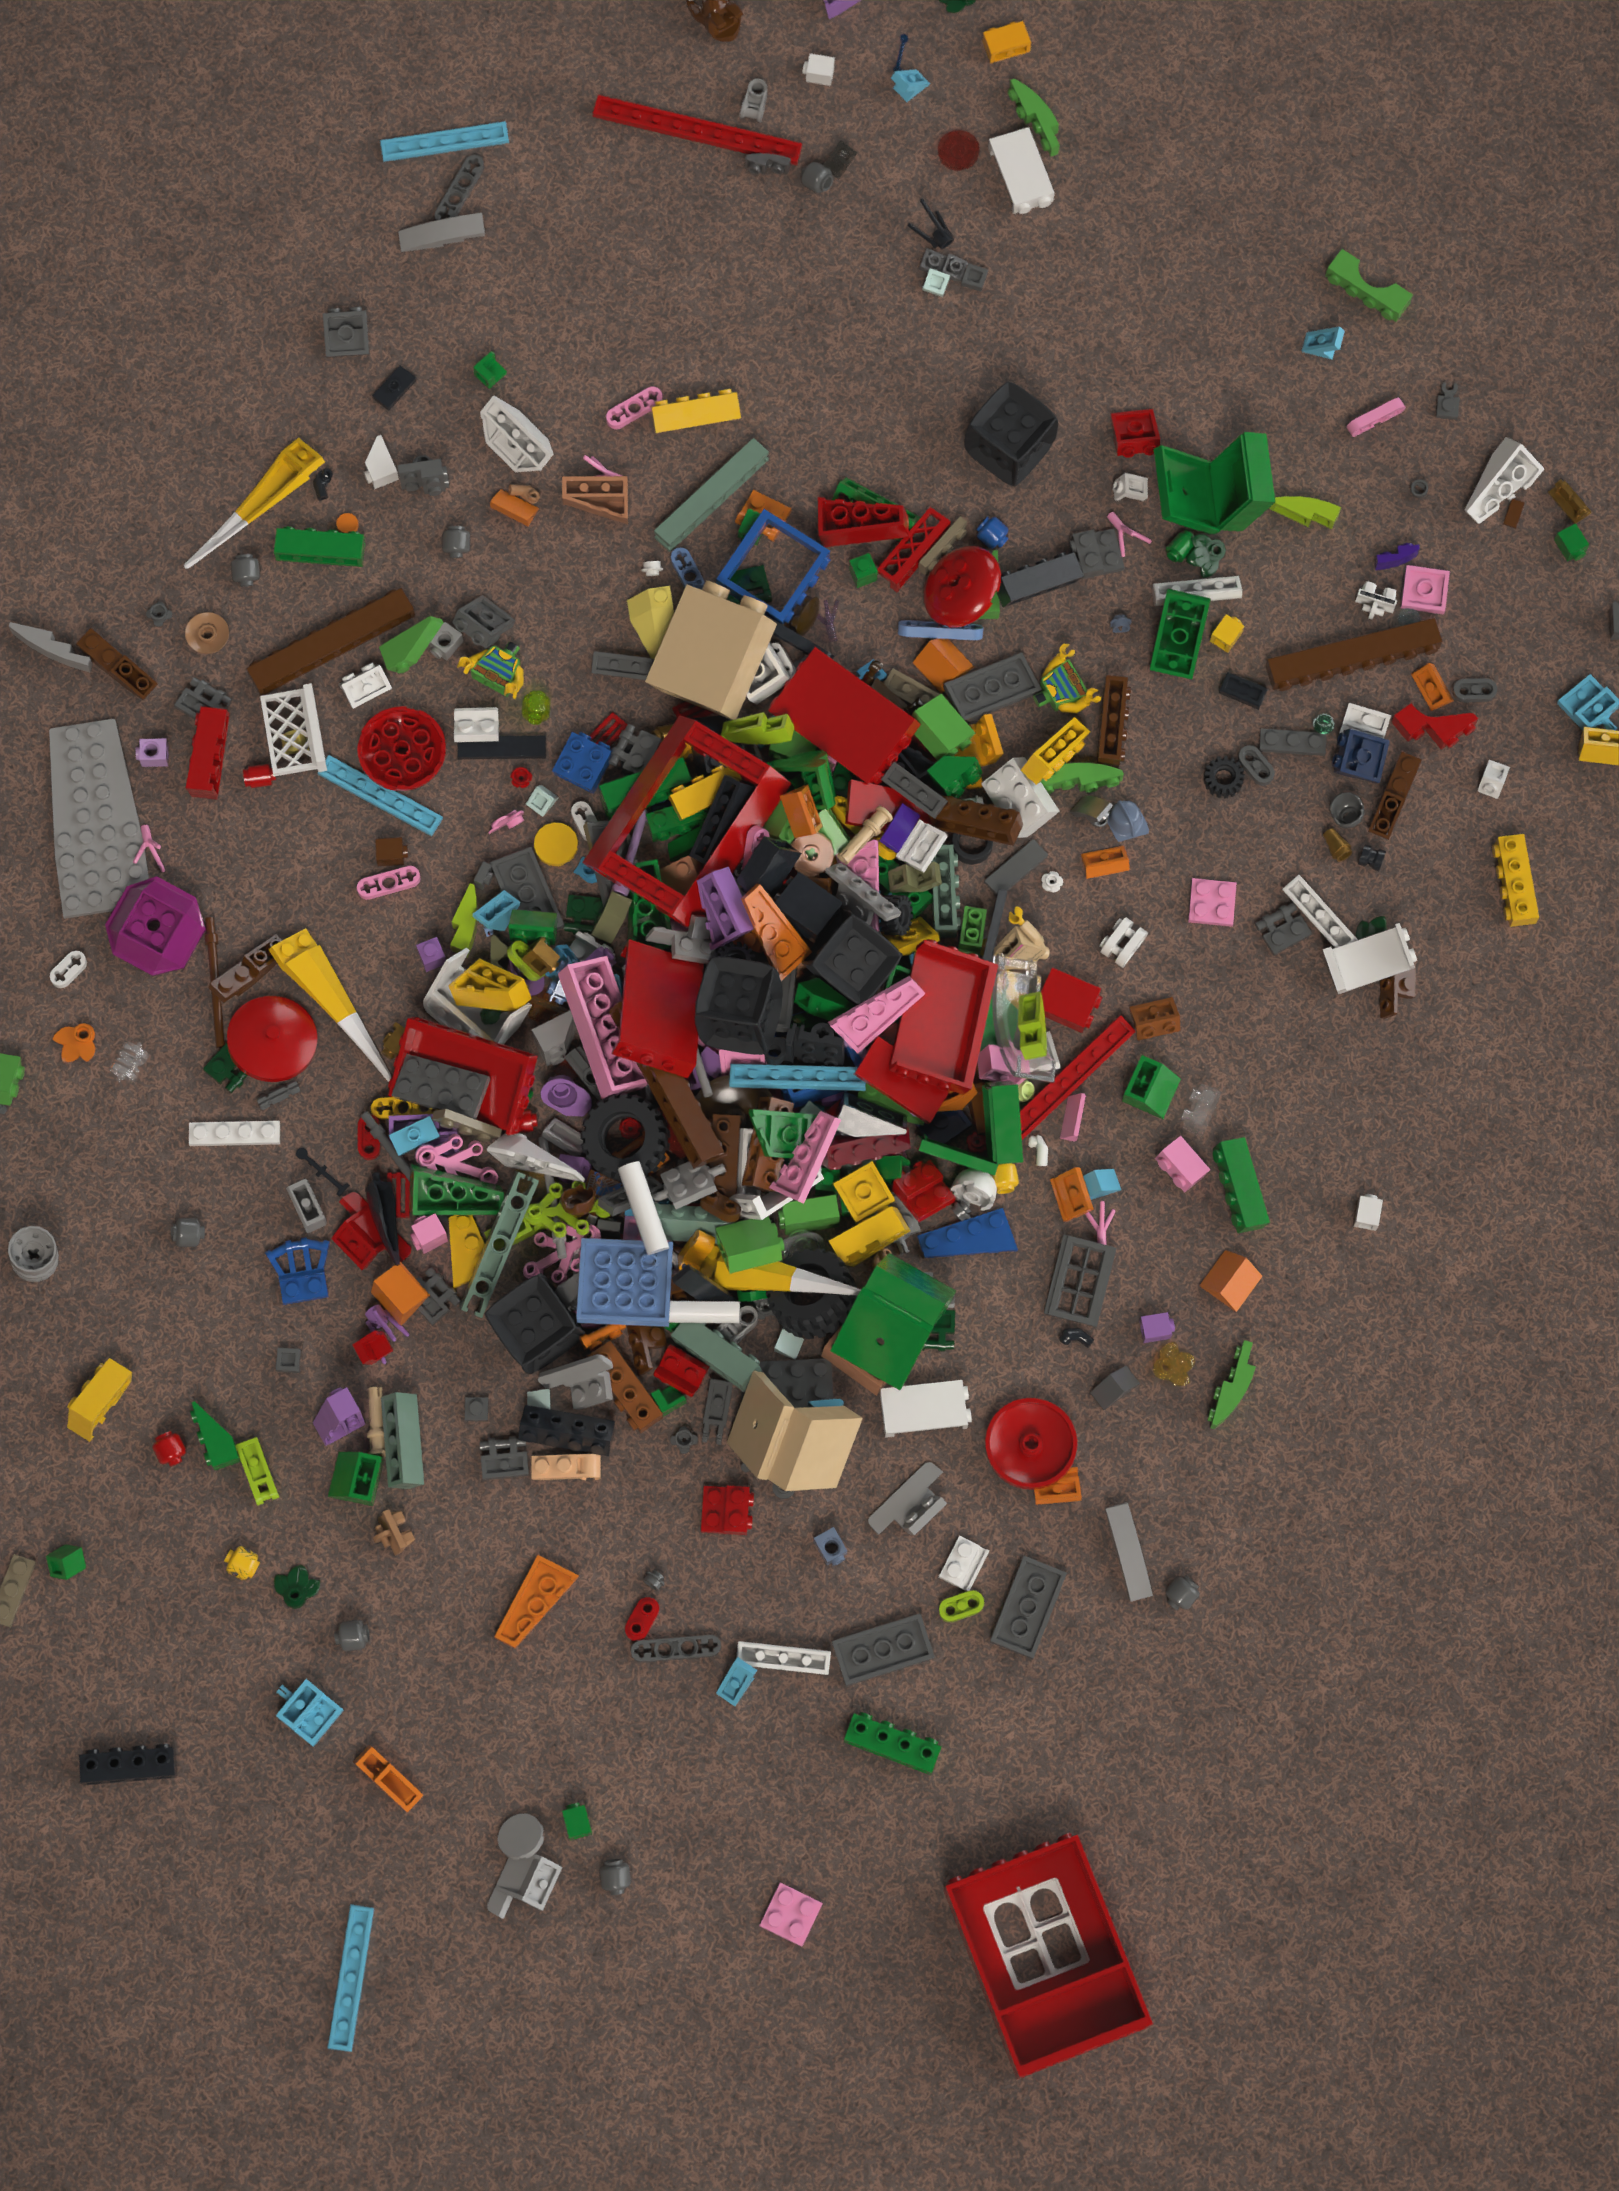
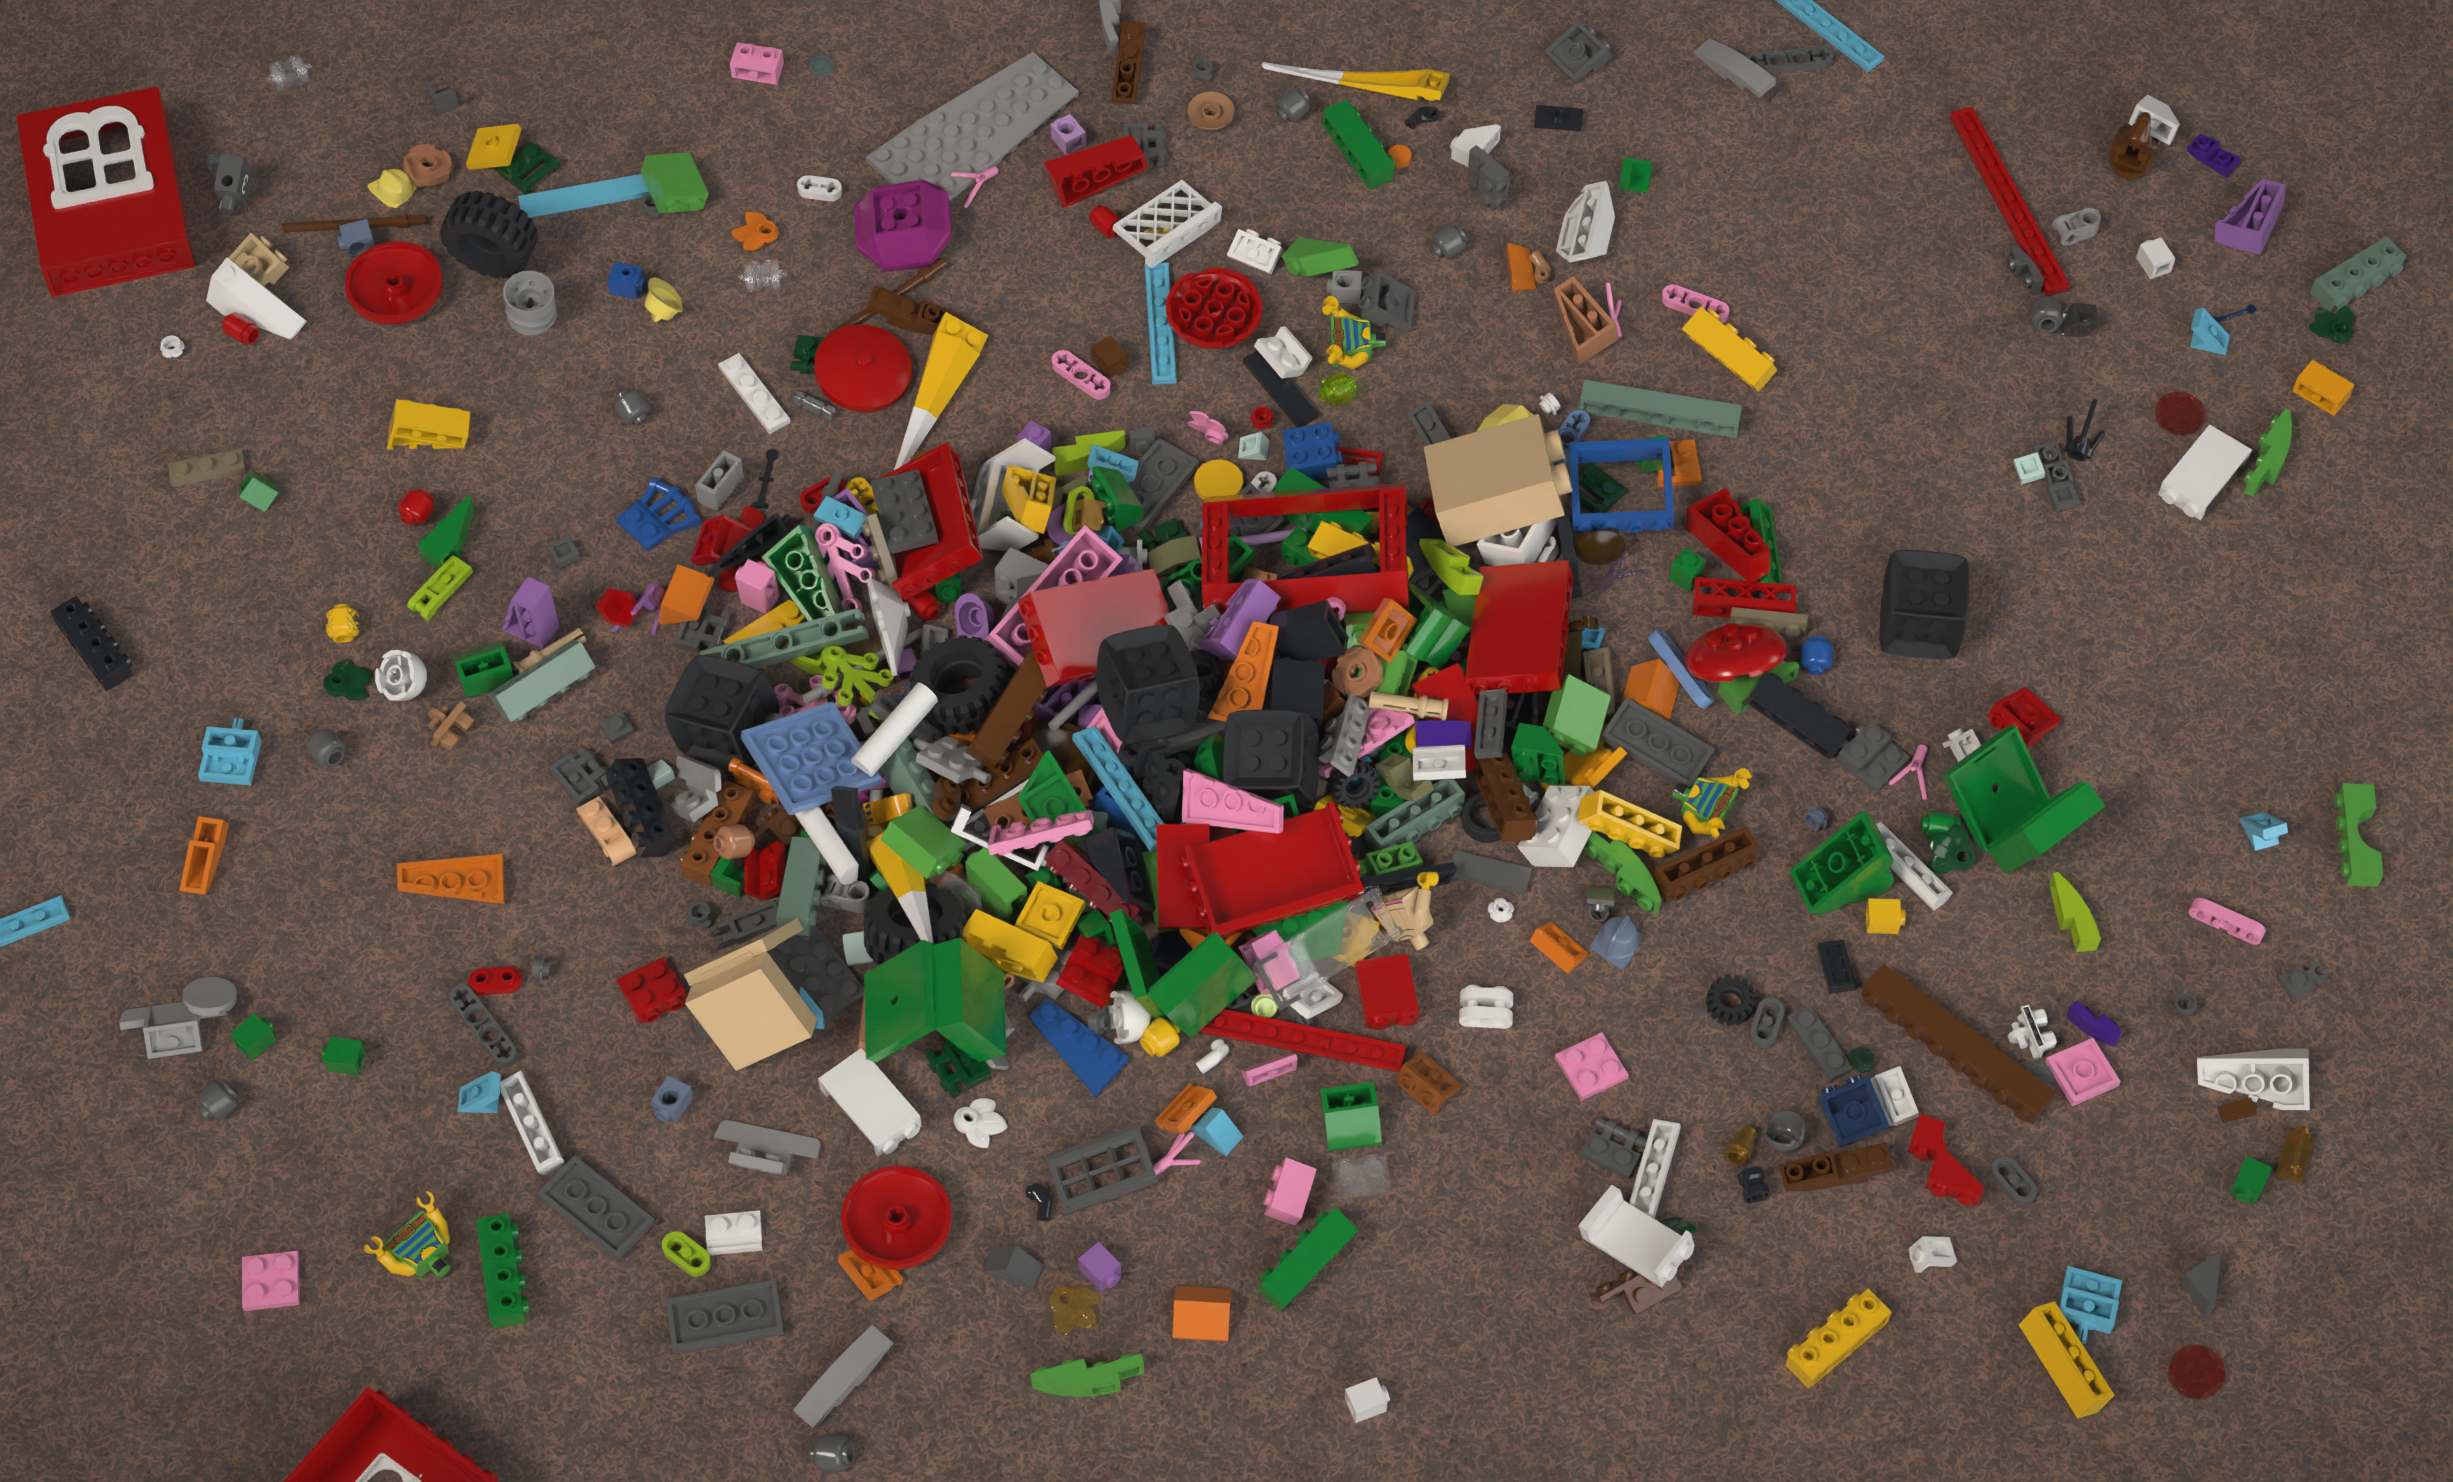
camera: 60 degrees right, 15 degrees down
(58, 1167) = (626, 280): none -> blue brick
(99, 1151) = (662, 300): none -> light yellow piece
(328, 1544) = (401, 675): none -> white cylinder
(331, 641) = (1275, 202): reddish brown brick -> none
(578, 1200) = (866, 677): reddish brown hair -> none
(637, 1764) = (343, 1055): none -> green brick
(651, 1379) = (734, 841): none -> nougat head
(834, 1792) = (417, 1245): none -> torso
(989, 1339) = (983, 1122): none -> white plate
(1032, 1026) = (1325, 960): lime slope -> none
(1432, 686) = (1986, 1140): orange slope -> none

